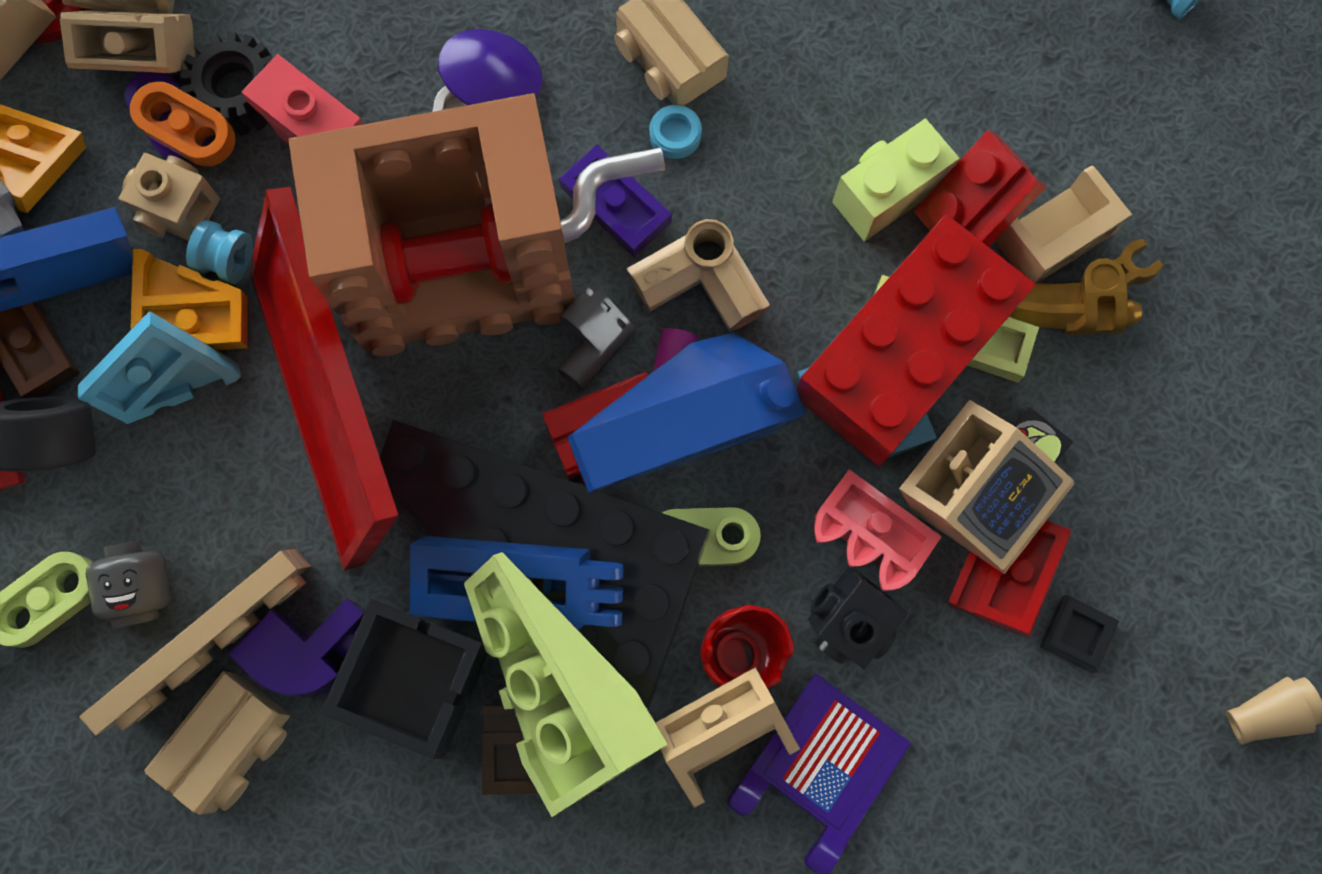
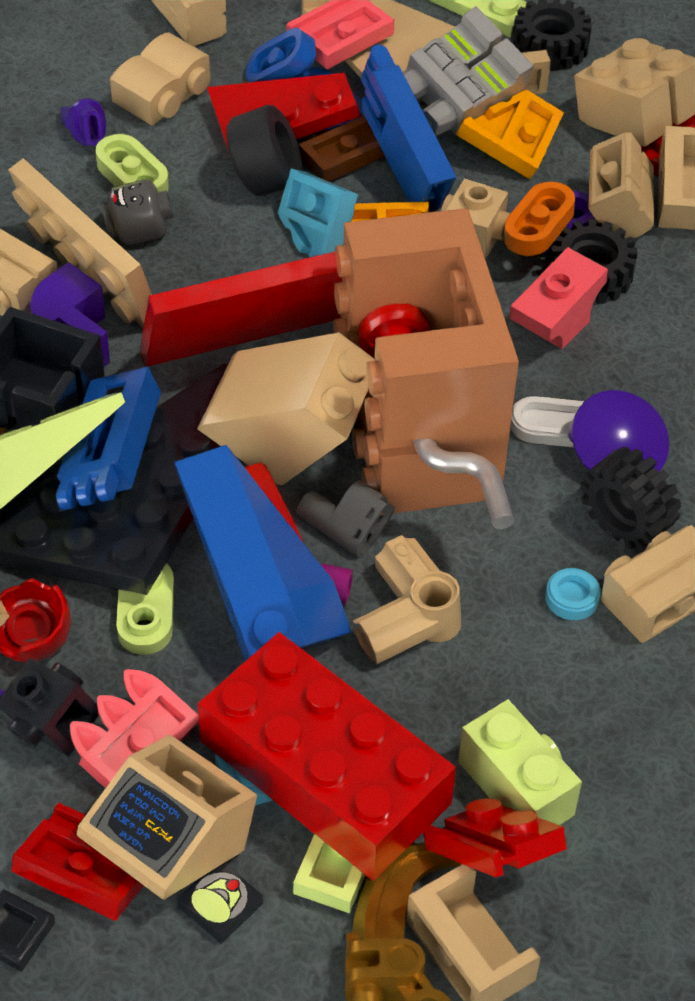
camera: 90 degrees right, 25 degrees down
(472, 380) = (288, 402): none -> tan slope
(582, 60) = (630, 497): none -> black tyre
(621, 206) = (479, 549): dark purple plate -> none

